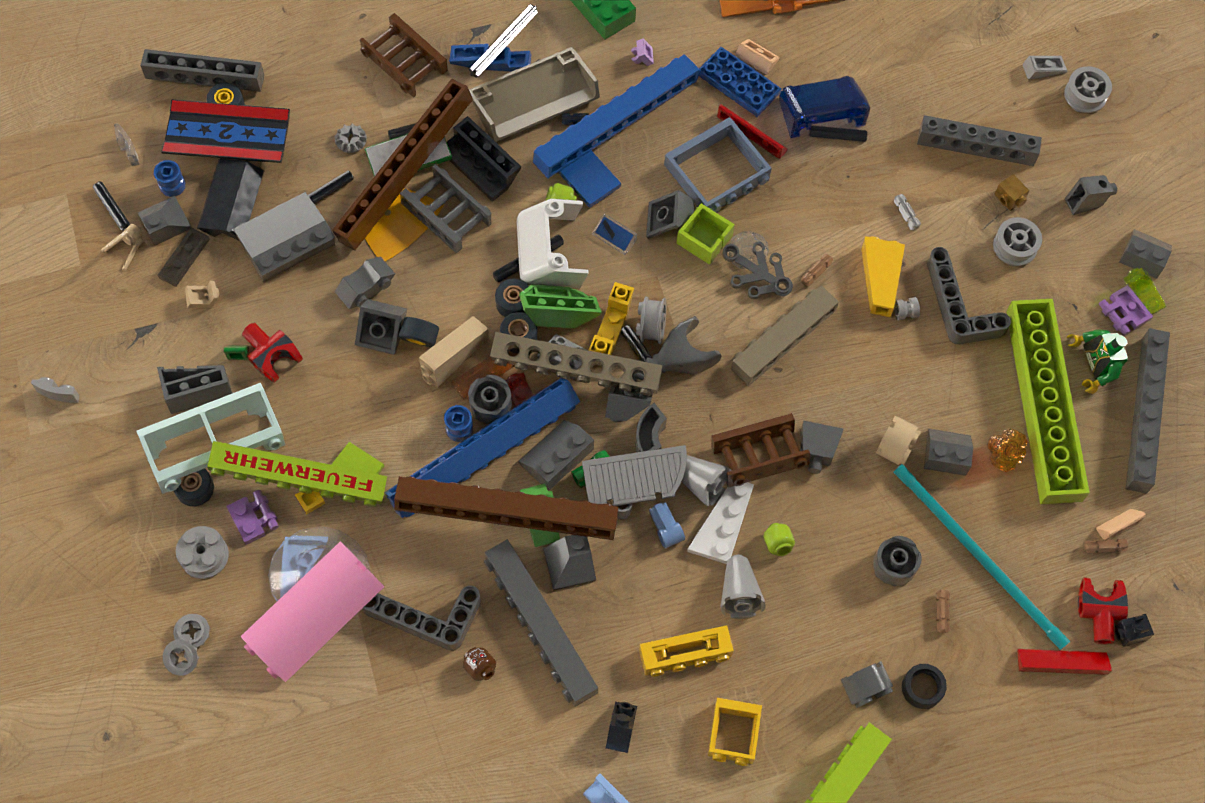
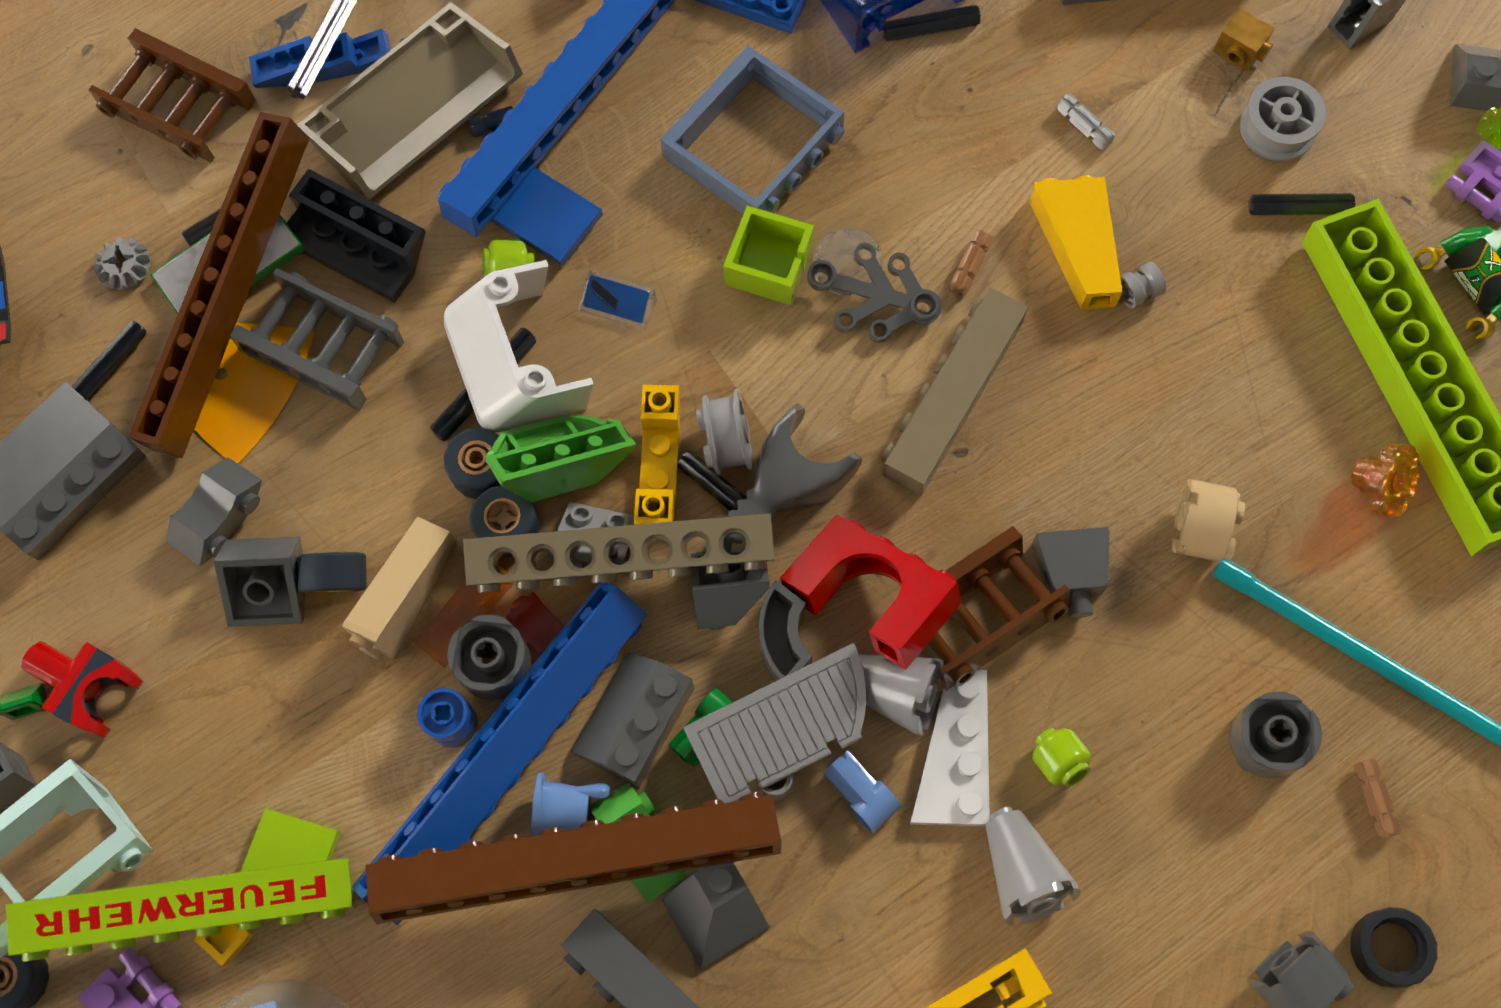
camera: 10 degrees left, 5 degrees up
(506, 481) = (562, 804): none -> medium blue hat
(668, 213) = (696, 237): dark grey slope -> none
(699, 401) = (848, 551): none -> red arch
(753, 133) = (793, 61): red slope -> none
(948, 452) = (1292, 511): dark grey slope -> none
(955, 304) = (1221, 254): dark grey beam -> none
(1011, 290) = (1300, 203): none -> black axle

